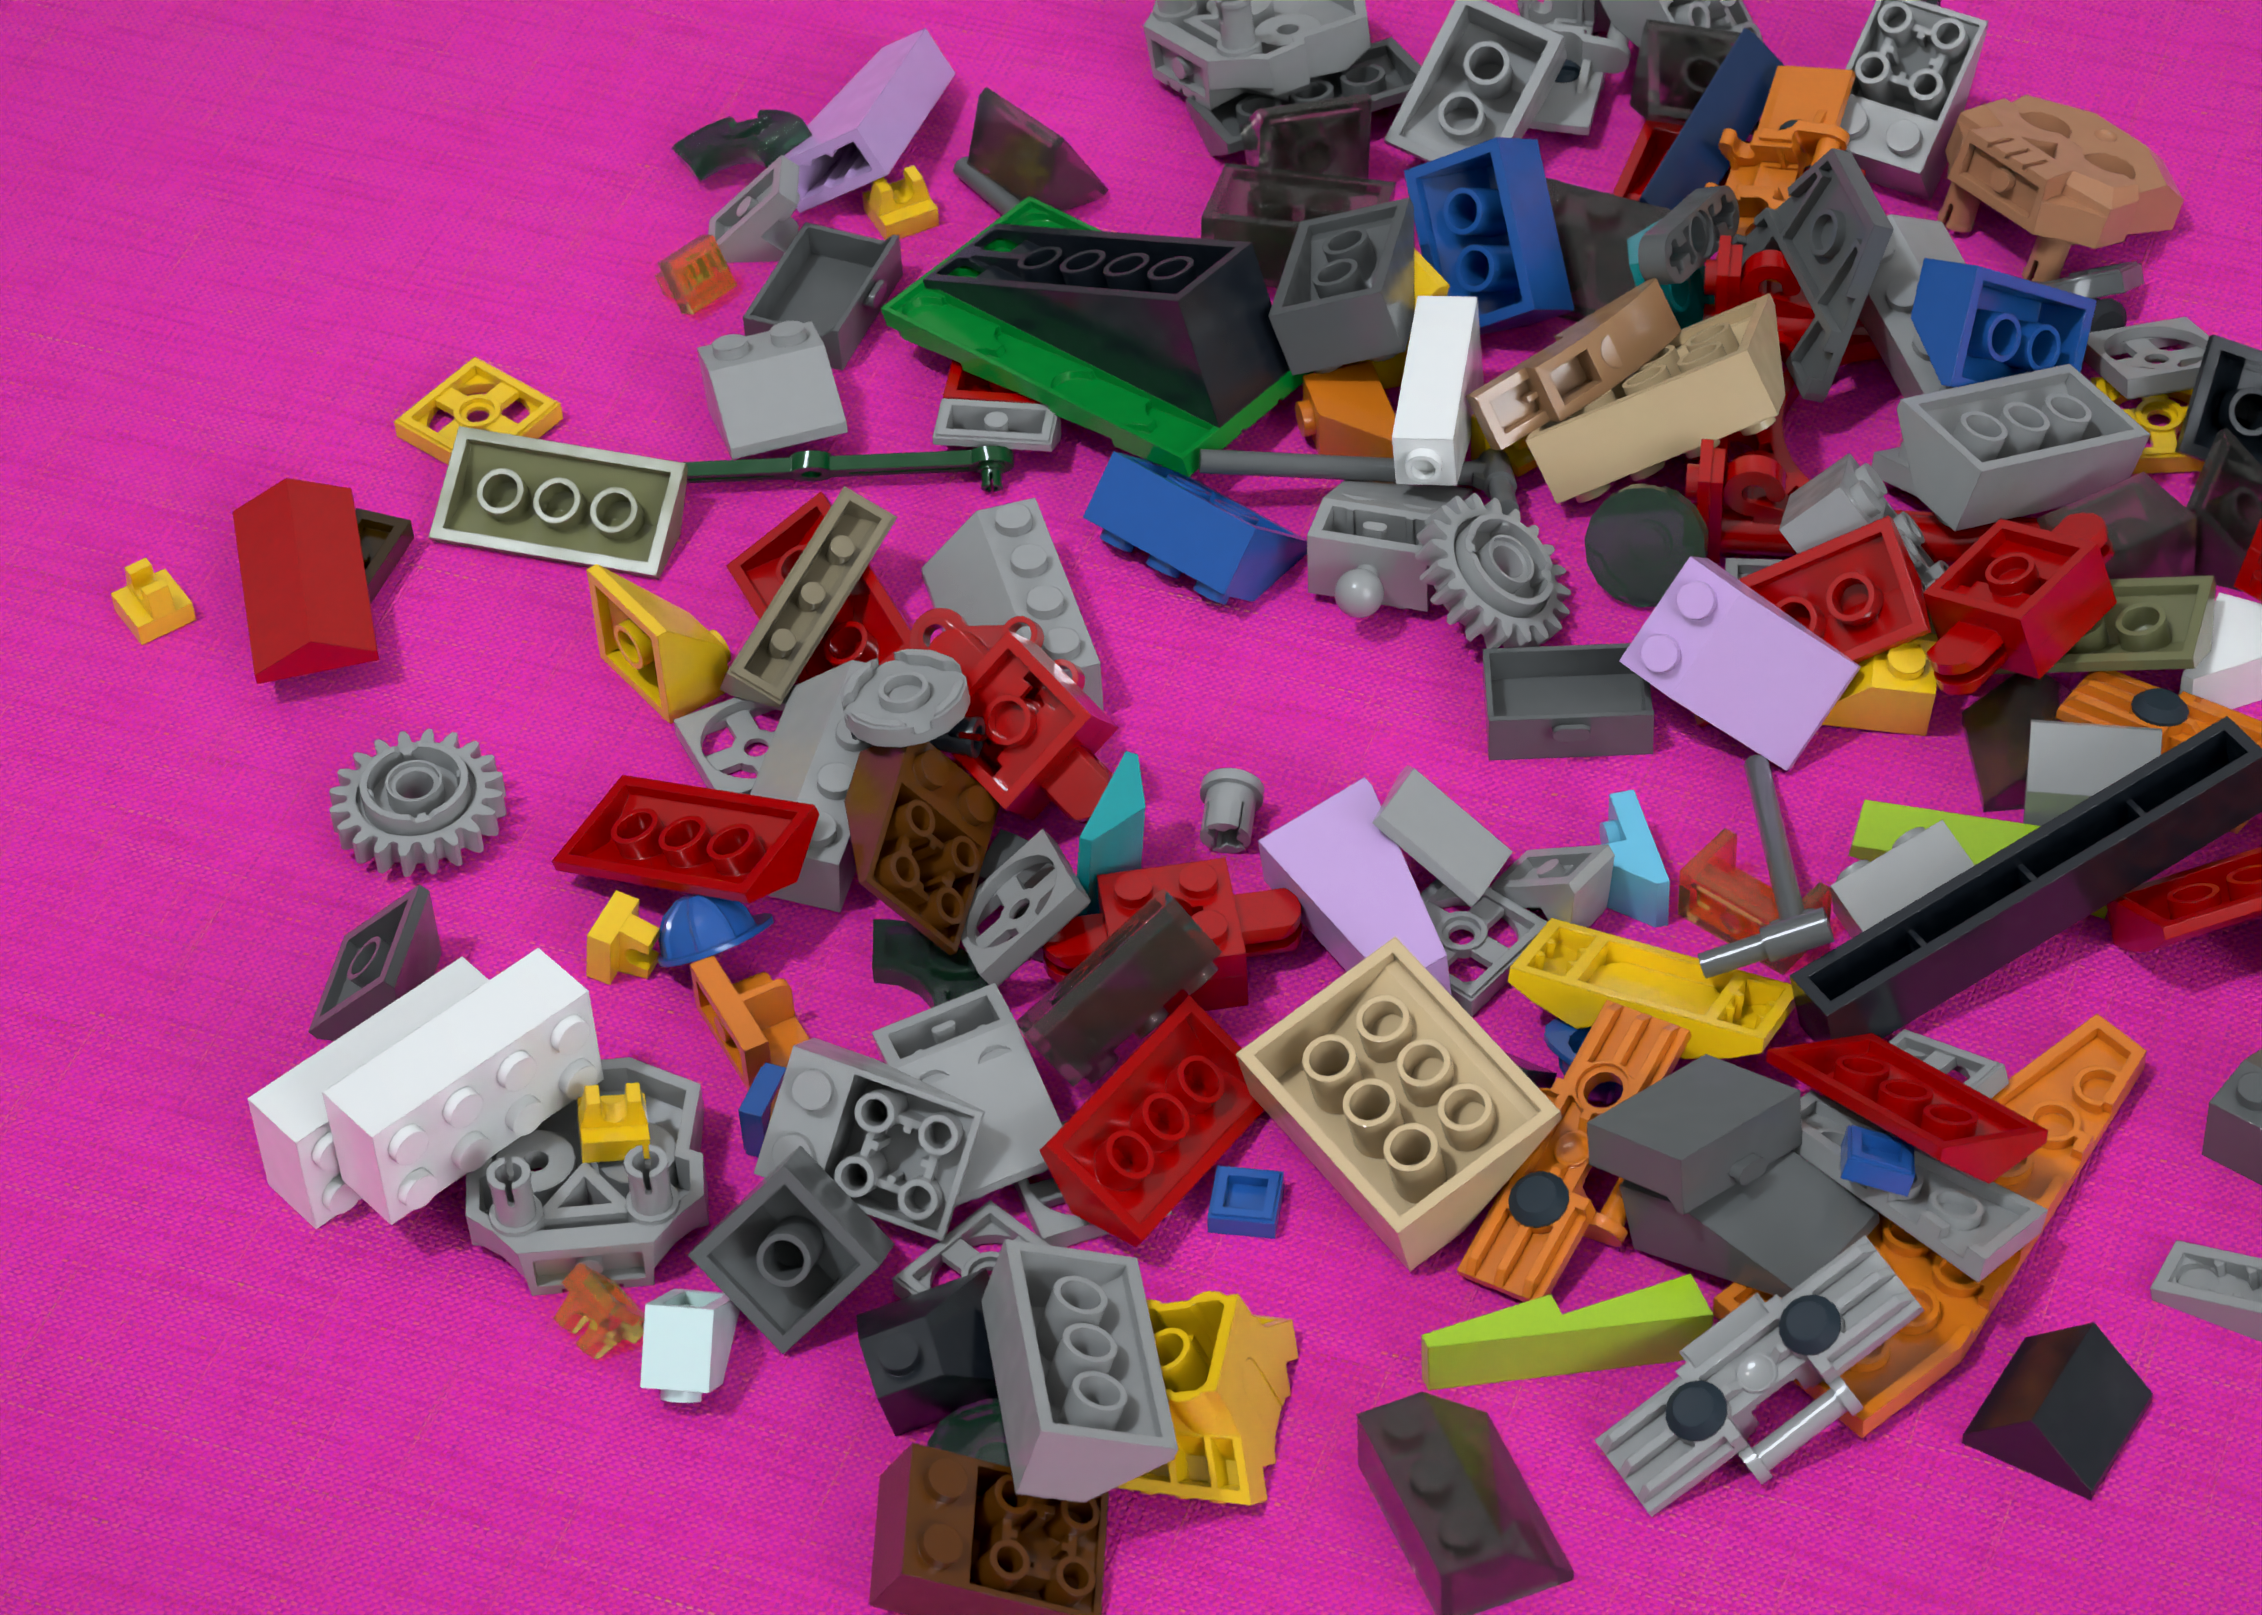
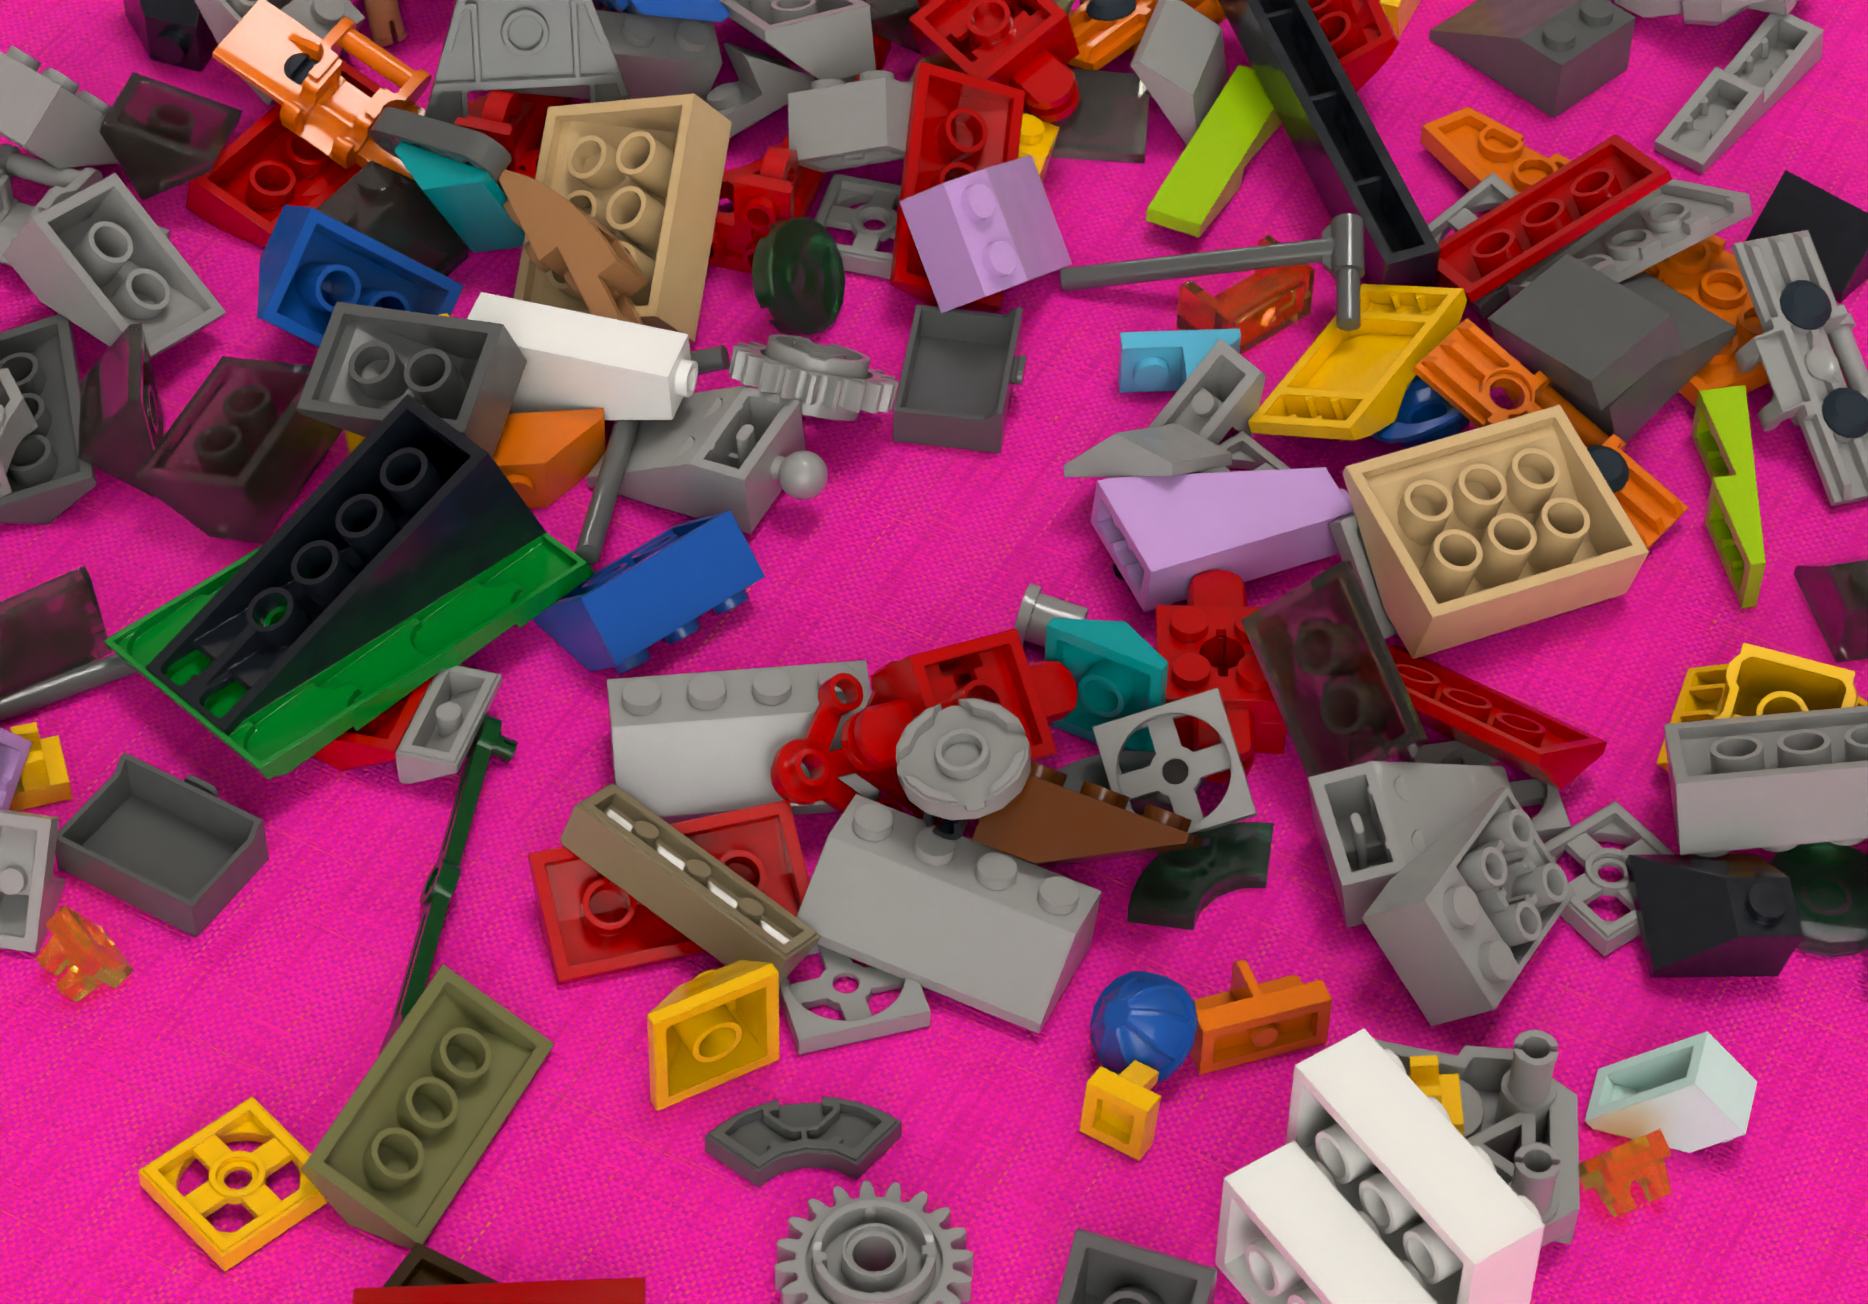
camera: 85 degrees left, 0 degrees up
(578, 747) = (801, 1135): none -> dark grey tile
(692, 840) = (1032, 1013): red slope -> none
(758, 1107) = (1383, 1009): blue tile -> none
(771, 389) = (332, 892): light grey slope -> none
(792, 1250) = (1597, 984): dark grey slope -> none
(1246, 1202) = (1536, 682): blue tile -> none
(1730, 101) = (247, 129): dark blue slope -> none
(1877, 1160) = (1627, 238): blue tile -> none
(1911, 869) = (1277, 187): light grey brick -> none

